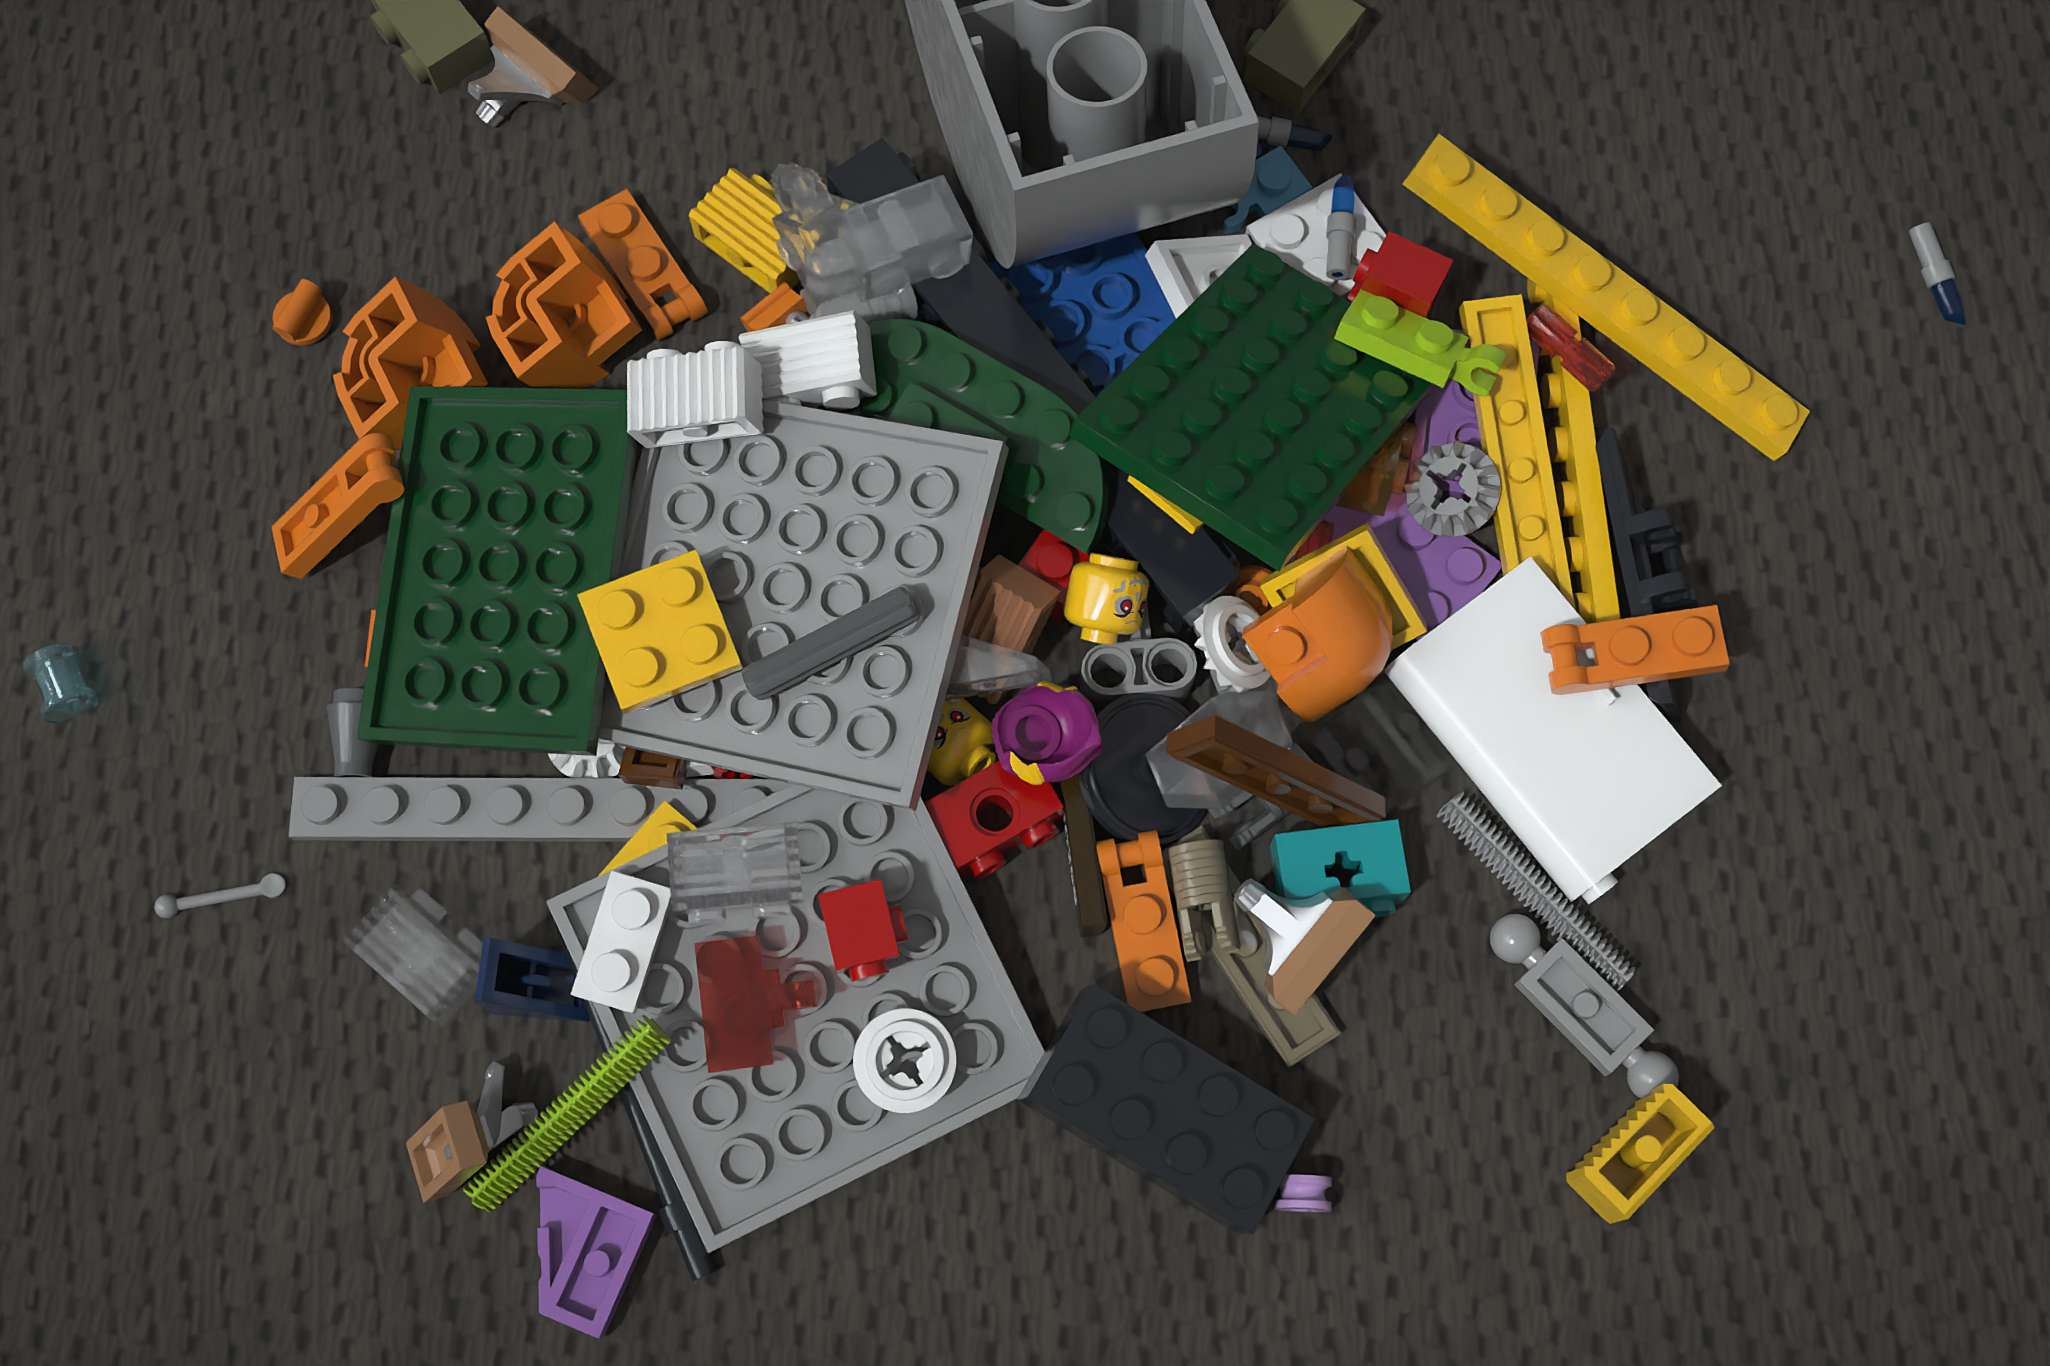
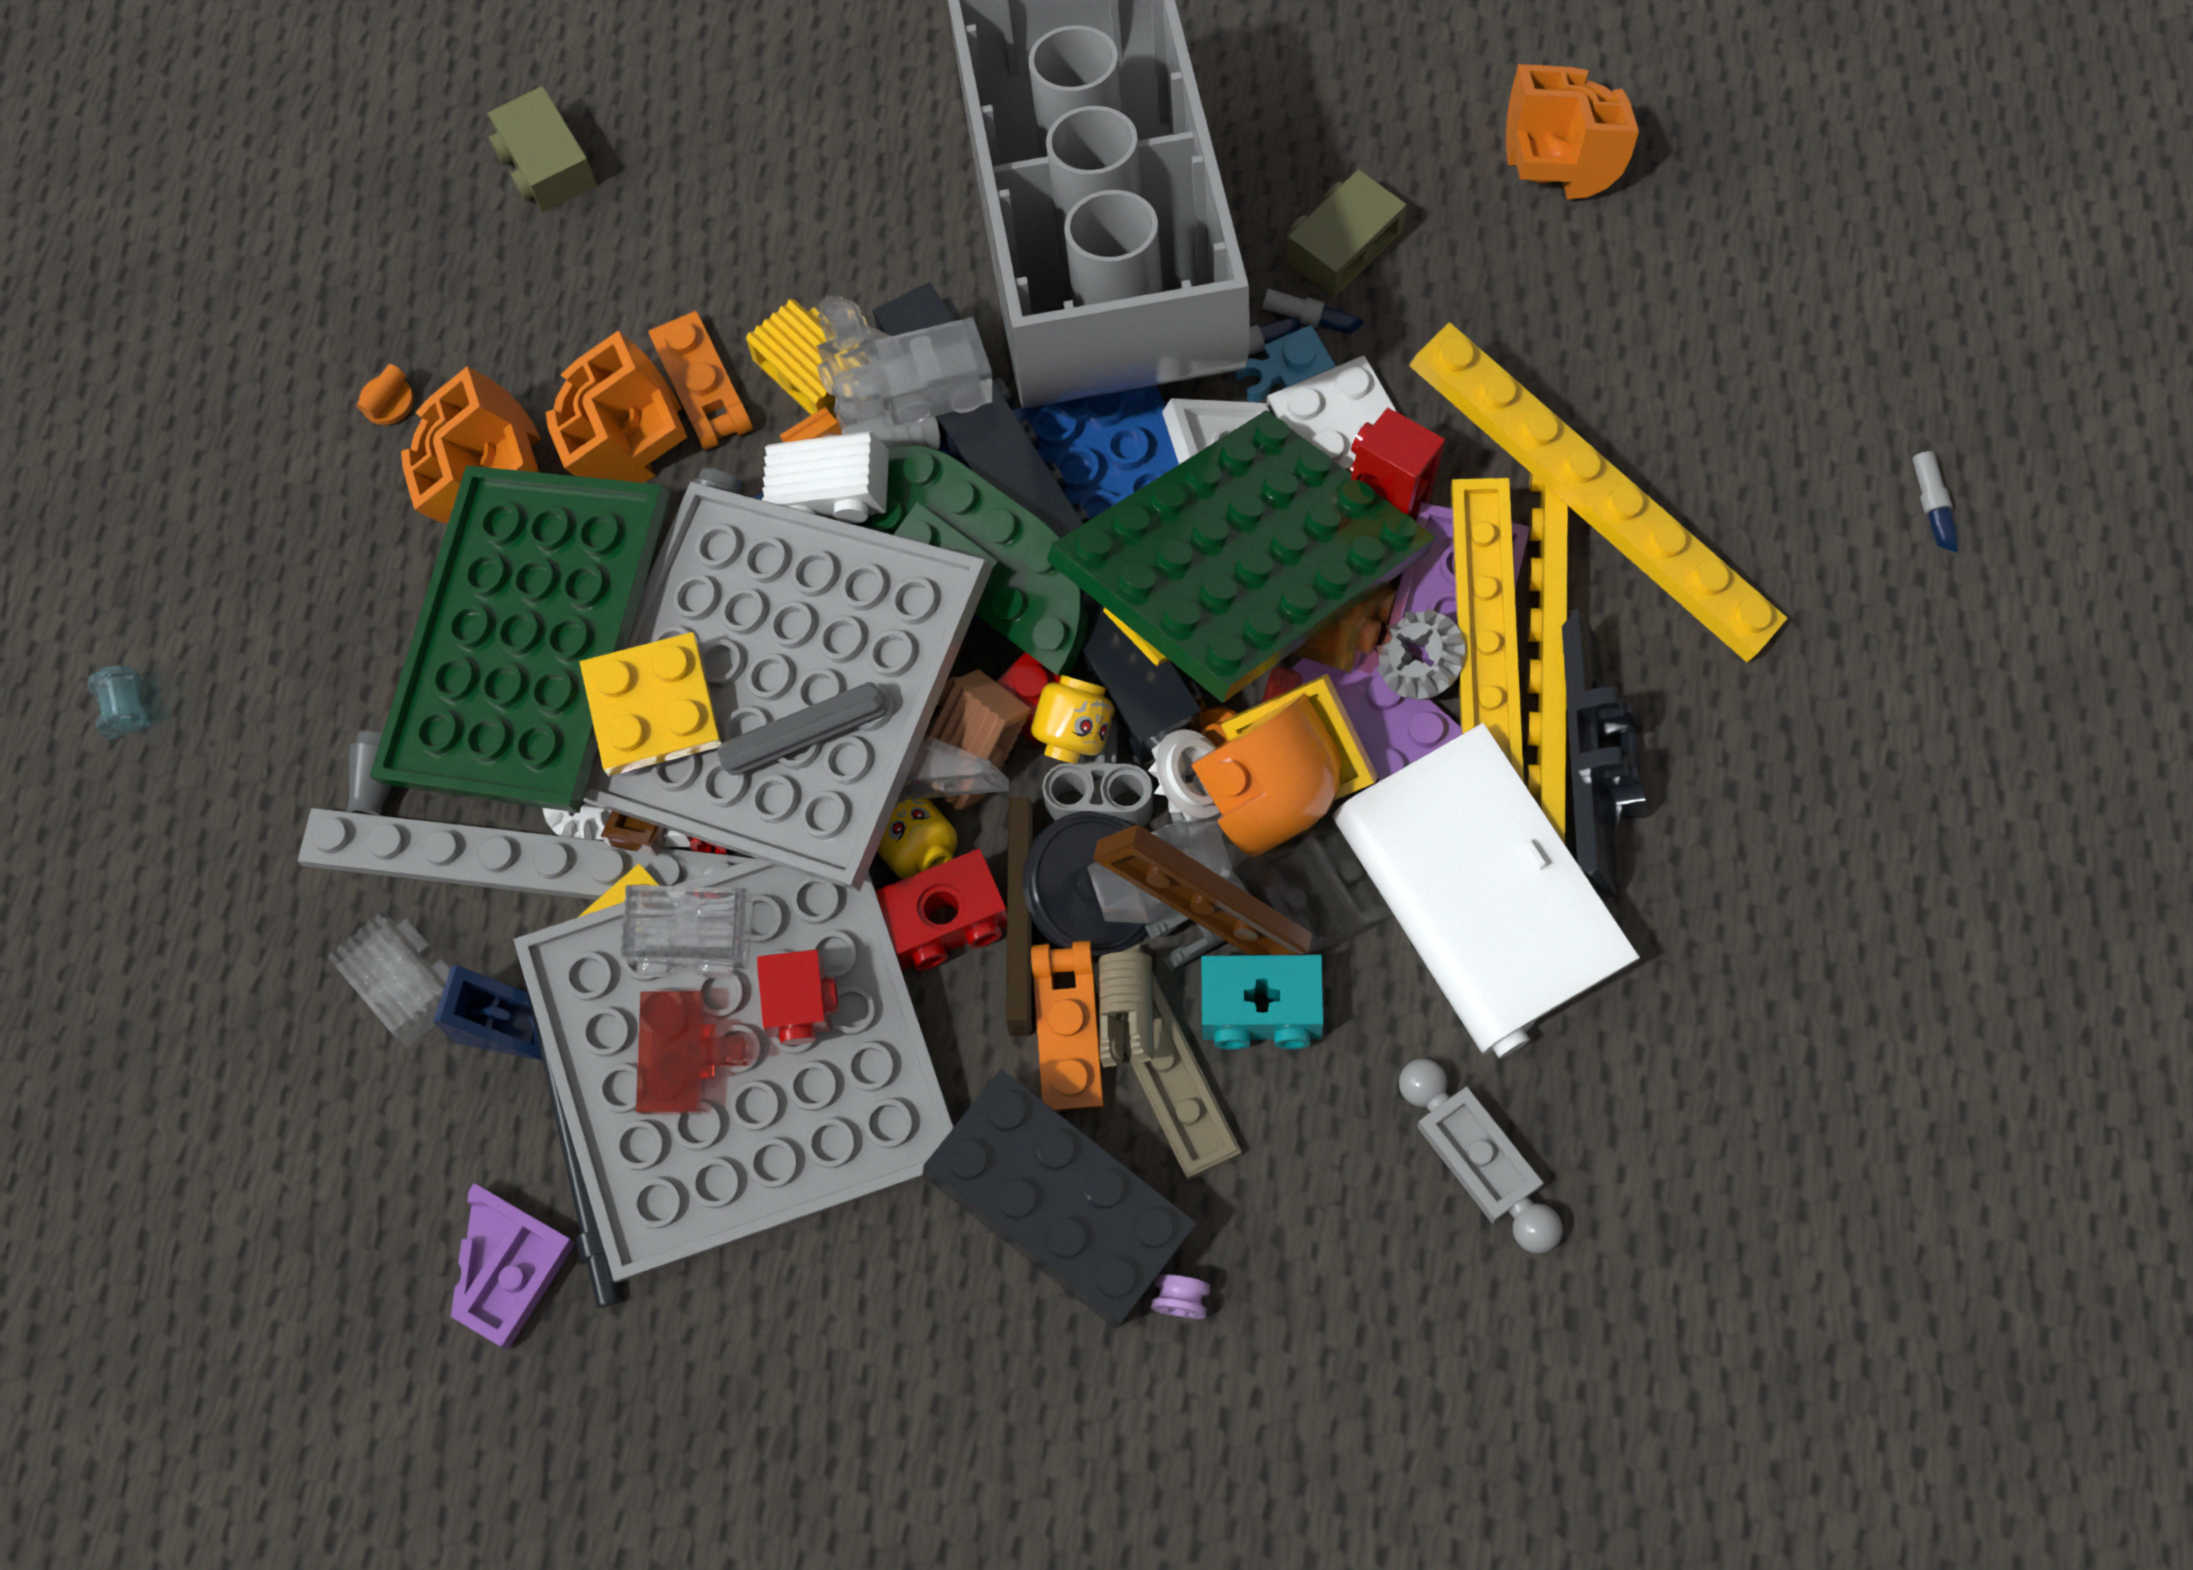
camera: 15 degrees right, 5 degrees down
(270, 886) = (276, 905): light grey hinge -> none
(337, 504) = (386, 566): orange plate -> none
(459, 1139) = (403, 1148): medium nougat piece -> none
(524, 72) = (619, 197): piece -> none
(568, 1116) = (504, 1138): lime axle -> none
(622, 942) = (575, 984): white plate -> none
(694, 395) = (714, 494): white brick -> none
(935, 1066) = (792, 1116): white gear -> none
(1046, 733) = (995, 836): magenta hair -> none
(1303, 937) = (1209, 1051): piece -> none
(1341, 229) = (1353, 404): light grey piece -> none
(1417, 344) = (1400, 514): lime plate -> none
(1538, 894) = (1449, 1042): light grey axle -> none
(1578, 357) = (1560, 541): clear red piece -> none
(1636, 650) = (1567, 818): orange plate -> none
(1639, 1153) = (1509, 1295): yellow brick -> none

